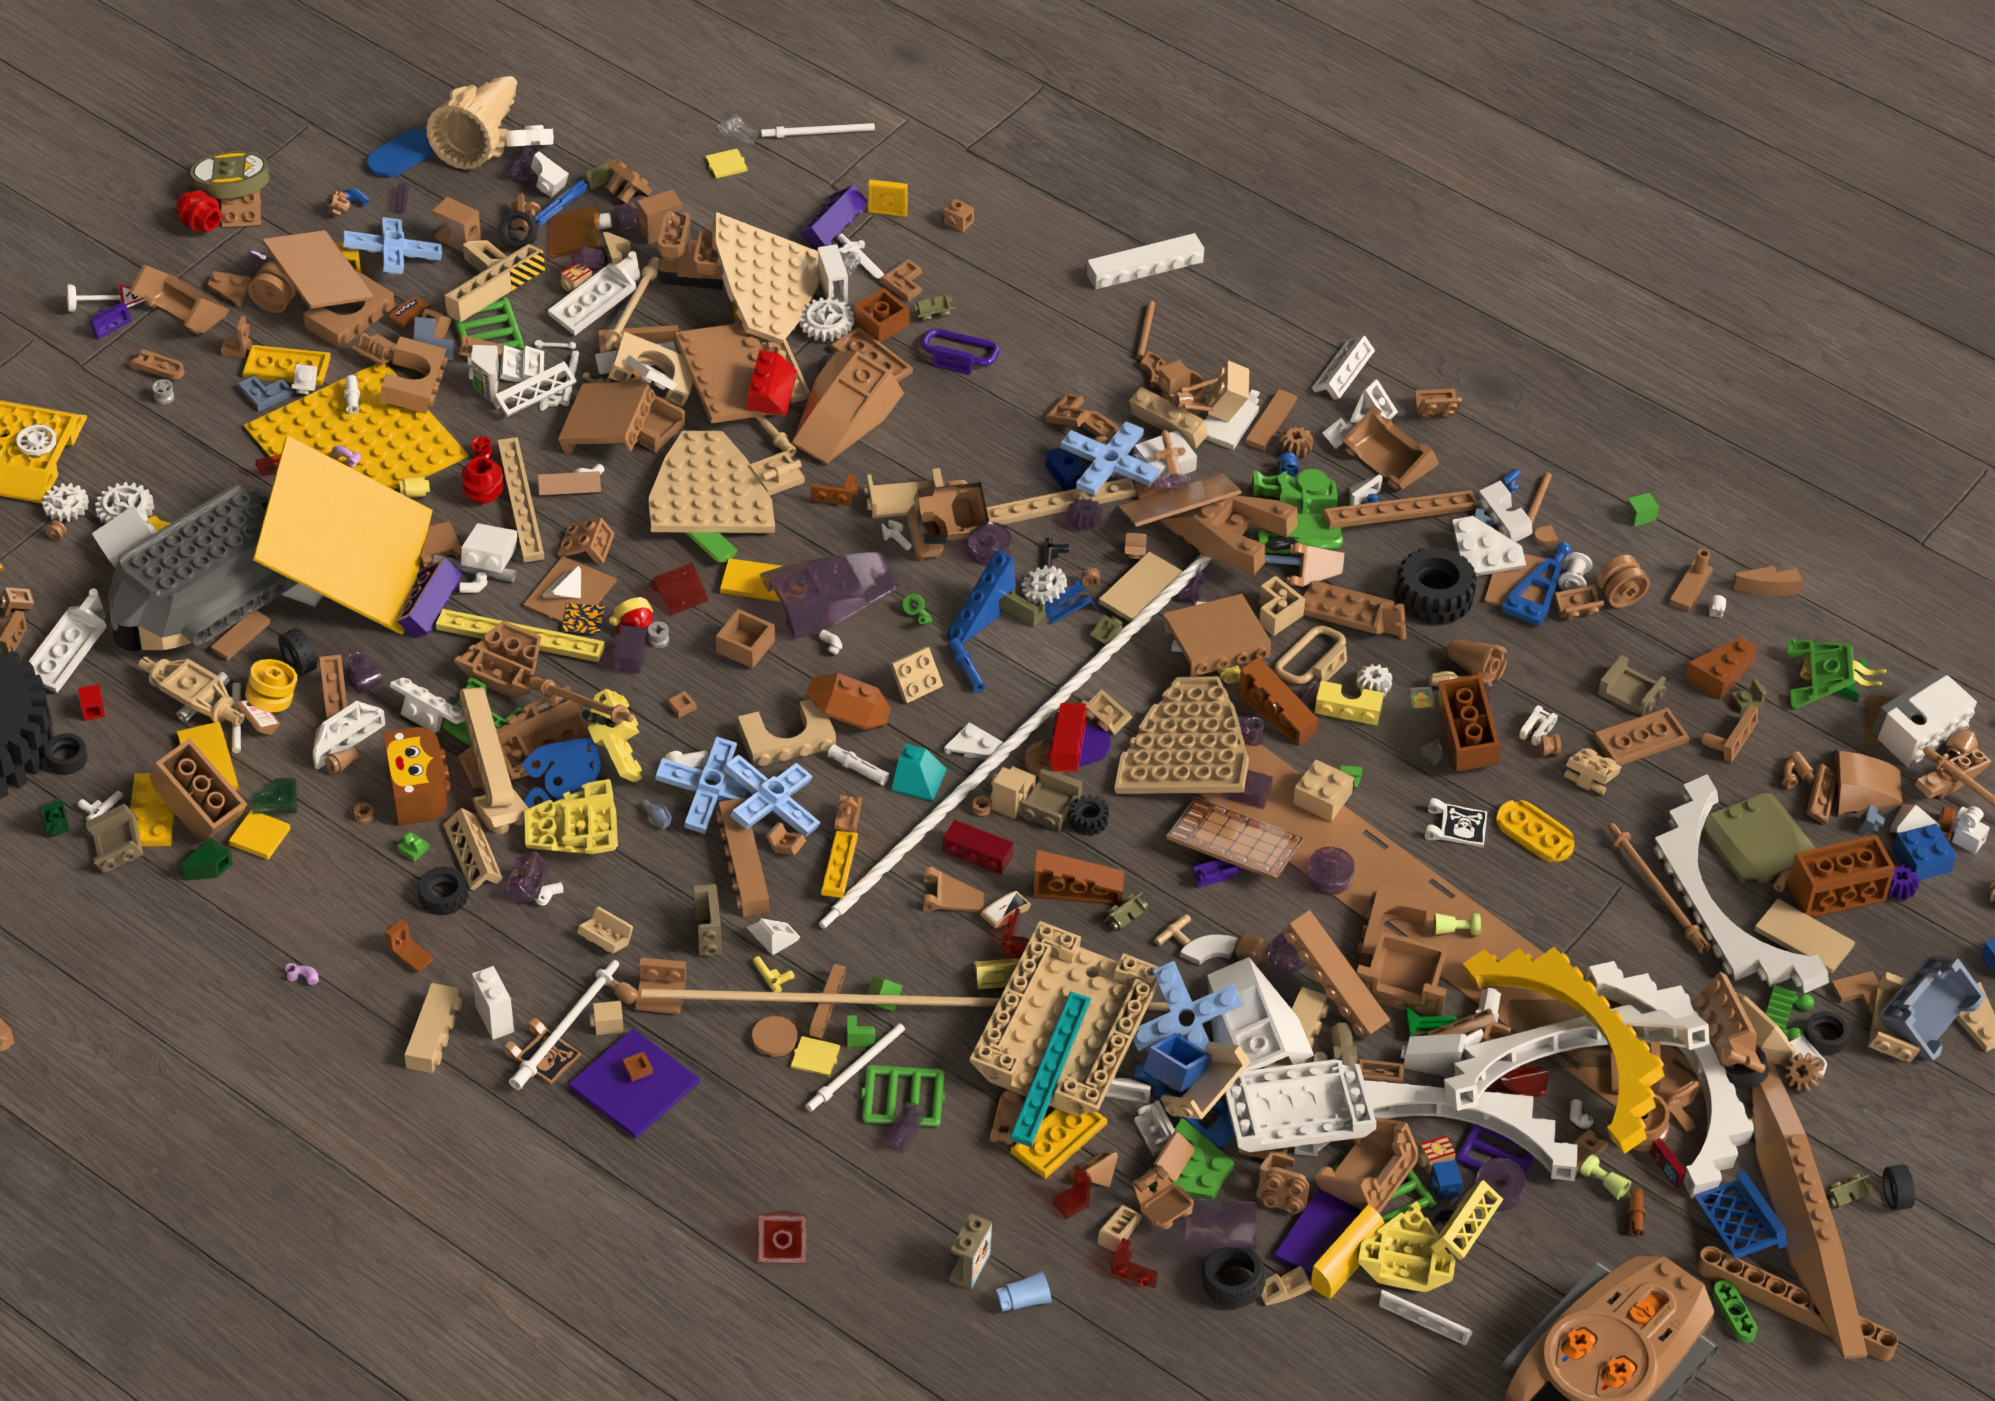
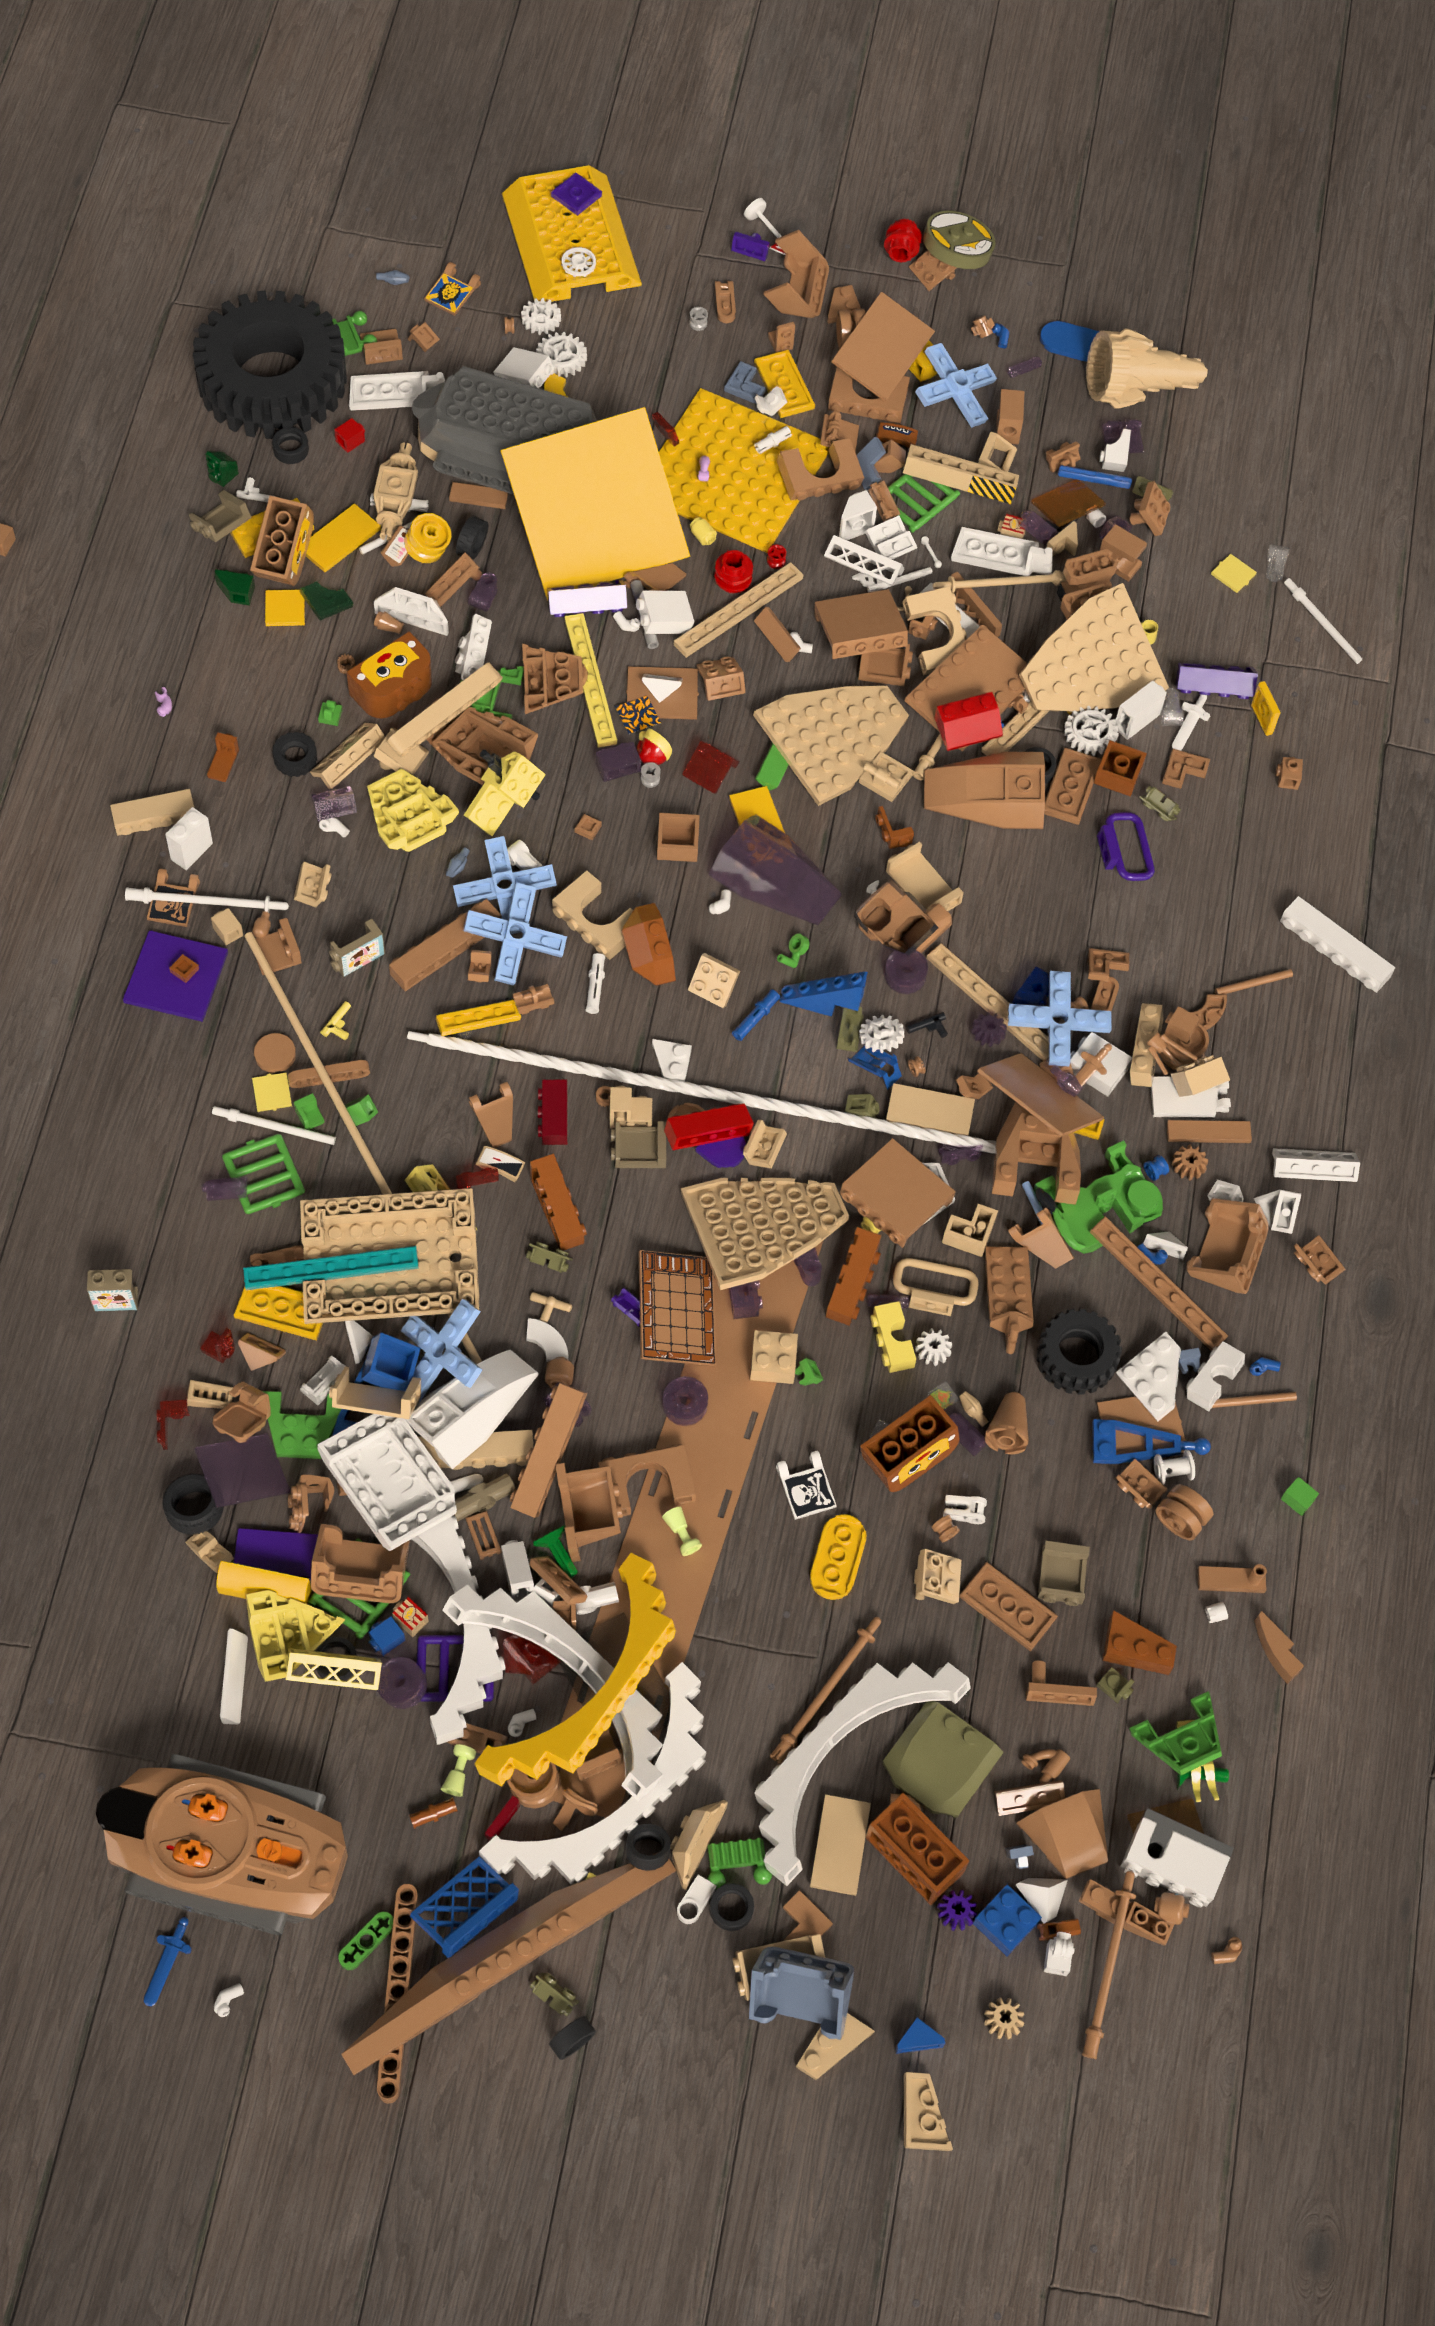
camera: 60 degrees right, 15 degrees up
(506, 221) = (1043, 468): black tyre -> none
(530, 136) = (1153, 417): white piece -> none
(570, 764) = (459, 776): blue piece -> none
(618, 713) = (528, 720): medium nougat bar -> none
(649, 374) = (917, 629): white wing -> none
(773, 934) = (377, 1004): white slope -> none
(782, 1237) = (69, 1148): clear red slope -> none
(918, 774) = (610, 1032): teal slope -> none
(1024, 1293) = (101, 1351): light blue plant -> none
(1085, 824) = (640, 1193): black tyre -> none
(1175, 1155) = (292, 1404): slope -> none
(1545, 536) = (1213, 1424): medium nougat tile -> none
(1728, 1024) = (649, 1825): medium nougat hinge -> none
(1797, 1078) = (667, 1902): medium nougat gear -> none

